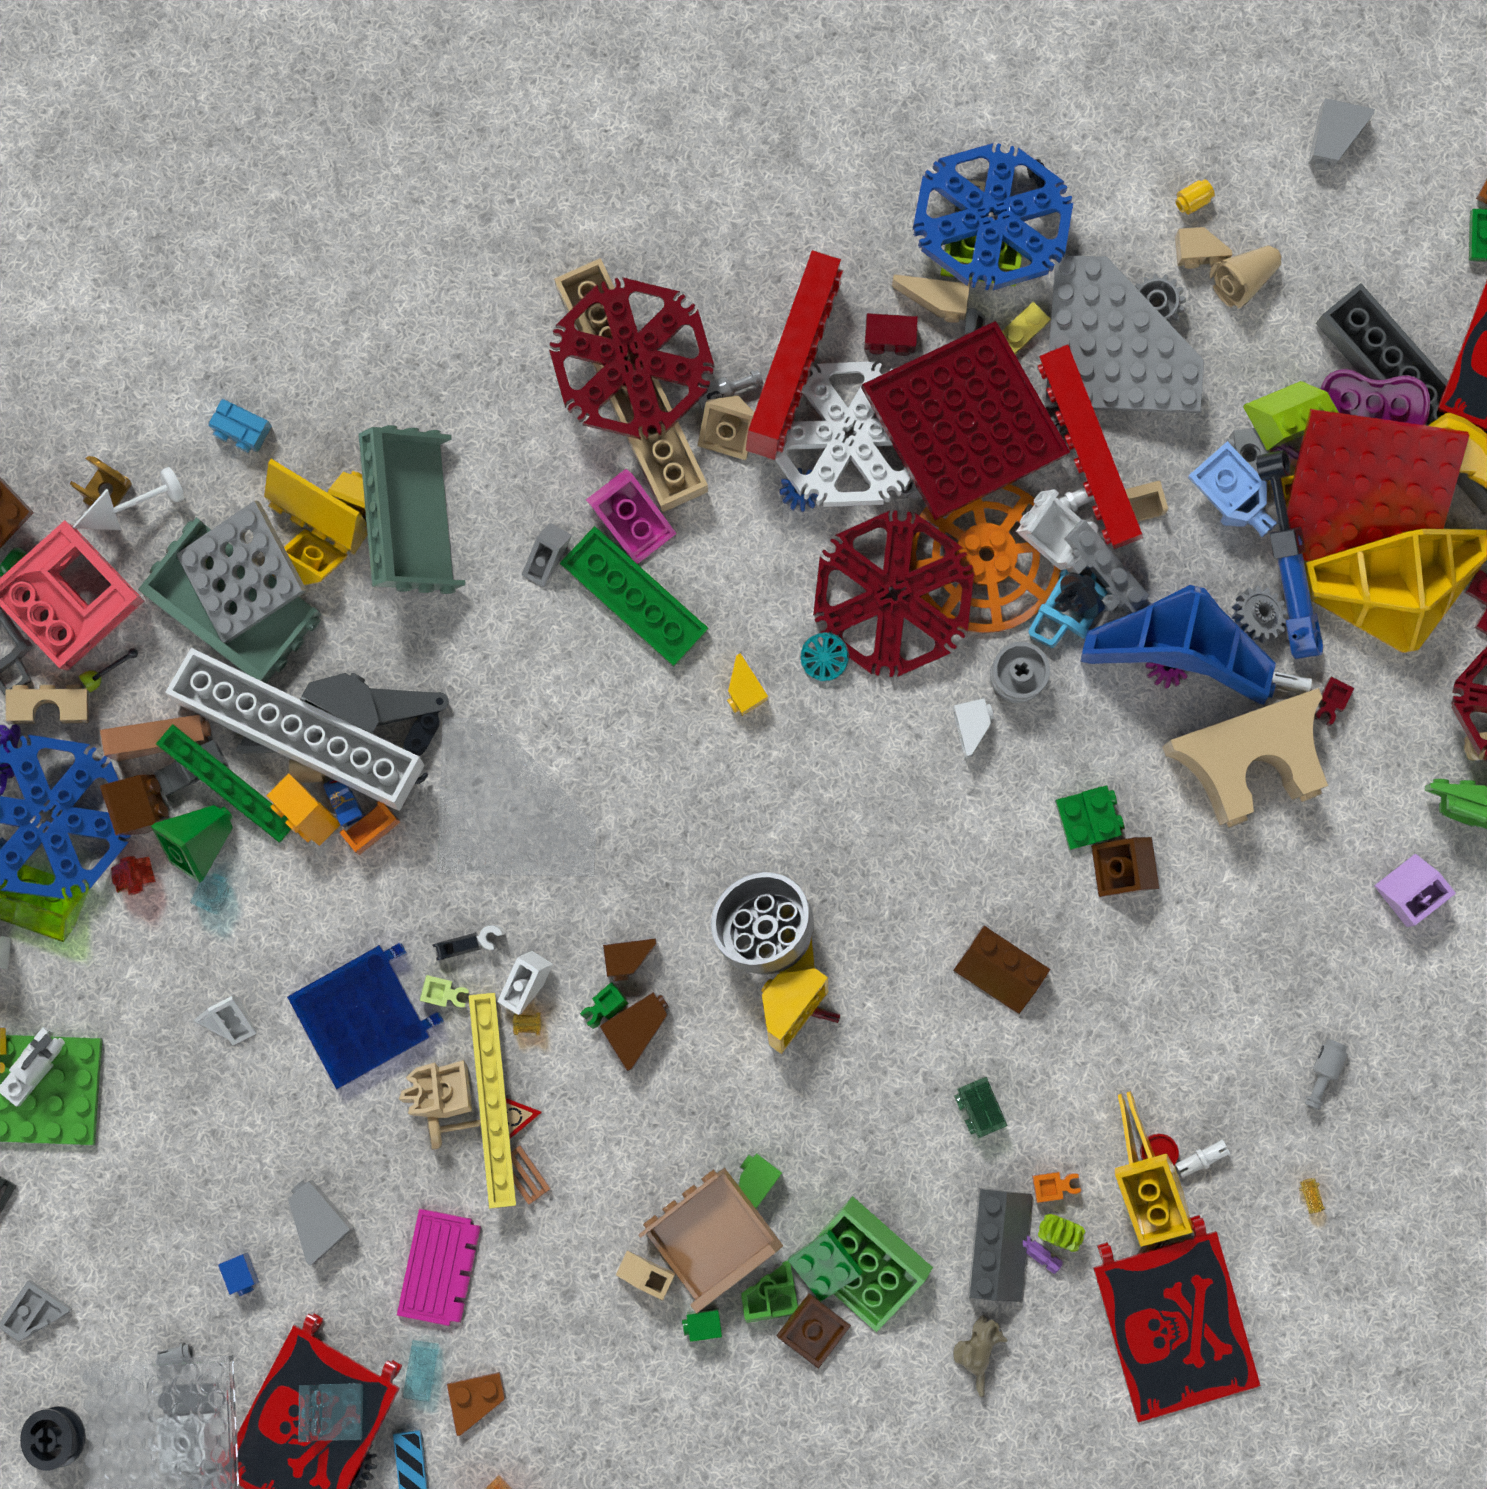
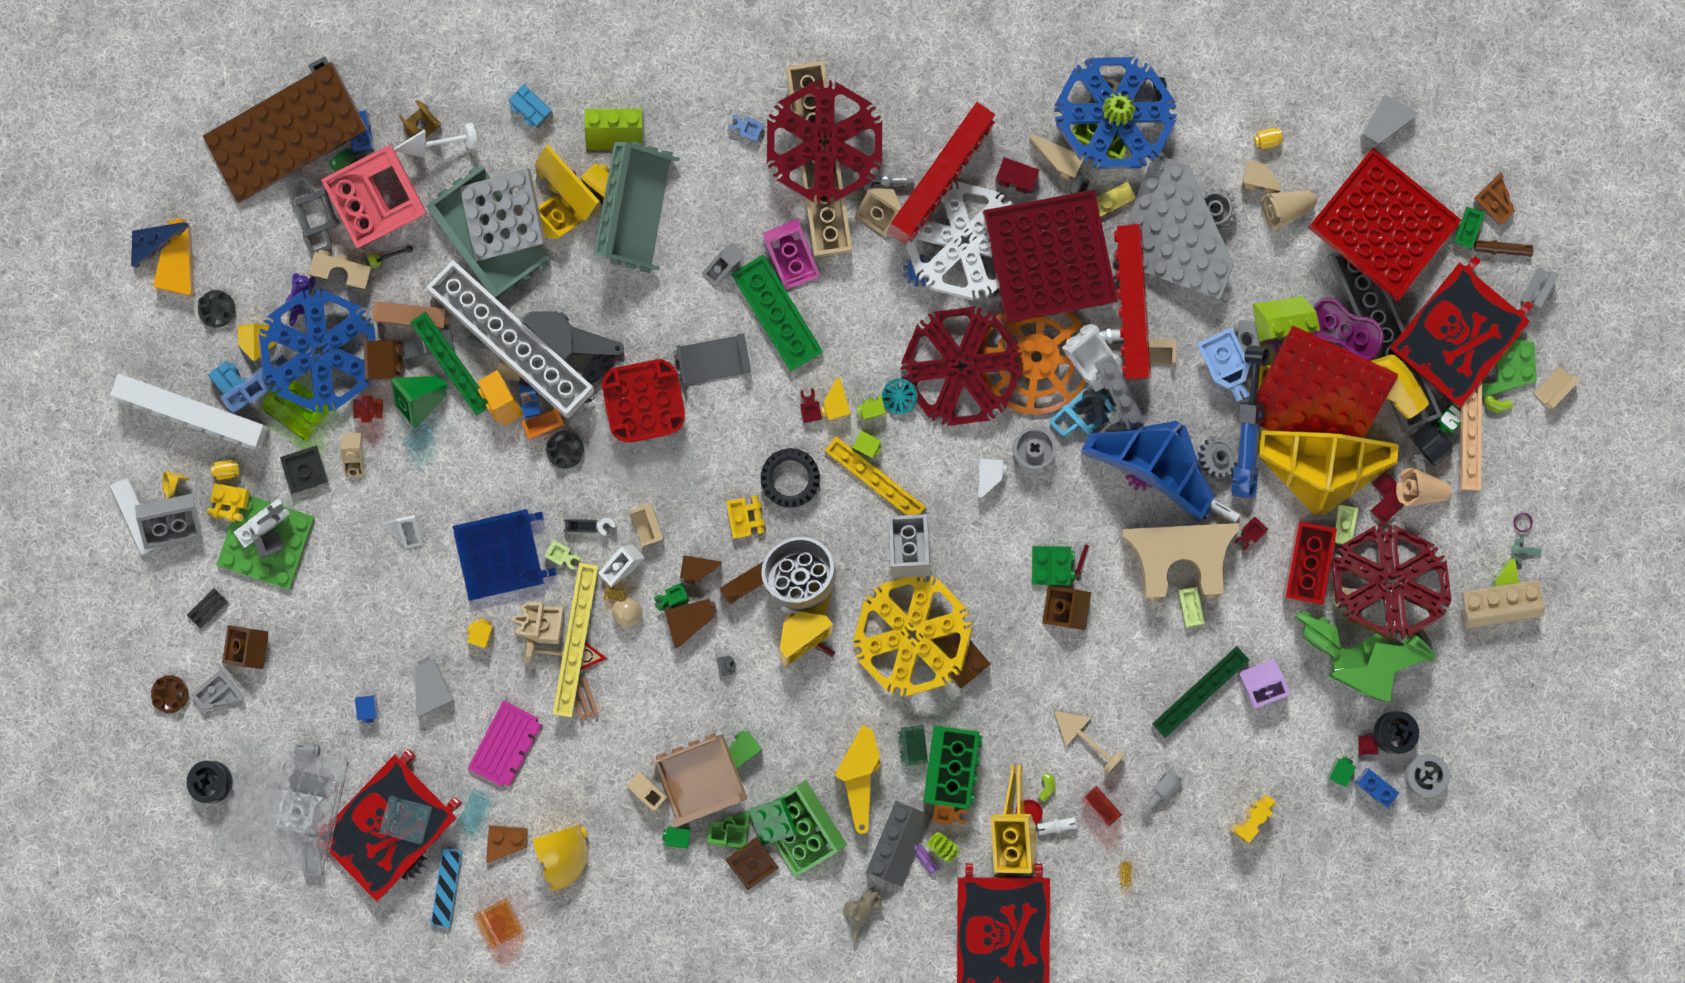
camera: 15 degrees right, 5 degrees up
(35, 528) = (364, 142): none -> blue brick
(48, 1094) = (269, 545): none -> dark grey panel
(54, 1240) = (245, 647): none -> reddish brown slope
(70, 979) = (304, 469): none -> pearl dark grey plate
(129, 941) = (352, 454): none -> tan slope
(343, 419) = (612, 125): none -> lime slope
(362, 1128) = (480, 632): none -> yellow brick
(408, 853) = (565, 449): none -> pearl dark grey dish
(492, 758) = (643, 401): none -> red plate
(530, 373) = (749, 128): none -> medium blue plate
(543, 920) = (646, 525): none -> tan panel
(550, 1043) = (627, 612): none -> tan hair
(556, 1395) = (563, 855): none -> yellow brick
(568, 680) = (712, 359): none -> dark grey panel
(662, 875) = (739, 517): none -> yellow plate
(693, 960) = (743, 584): none -> reddish brown slope
(702, 1075) = (726, 665): none -> dark grey plate
(704, 773) = (784, 455): none -> black tyre
(714, 706) = (810, 410): none -> dark red plate
(793, 683) = (871, 408): none -> lime brick
(801, 731) = (867, 445): none -> lime brick
(824, 773) = (874, 478): none -> yellow tile
(897, 845) = (909, 546): none -> light grey brick
(915, 1163) = (856, 772): none -> yellow slope
(958, 946) = (929, 629): none -> yellow plate
(997, 206) = (1118, 109): none -> lime gear
(1029, 1136) = (942, 757): none -> green brick
(1124, 807) = (1081, 561): none -> dark red piece
(1175, 1108) = (1049, 786): none -> lime arm
(1179, 1020) = (1071, 726): none -> tan piece
(1253, 1114) = (1101, 806): none -> clear red brick
(1286, 818) = (1191, 607): none -> yellowish green plate
(1333, 925) = (1200, 691): none -> dark green plate
(1379, 257) = (1384, 224): none -> red plate
(1422, 715) = (1309, 563): none -> red brick
(1449, 653) = (1345, 523): none -> yellowish green plate
(1459, 1069) = (1254, 816): none -> yellow hips

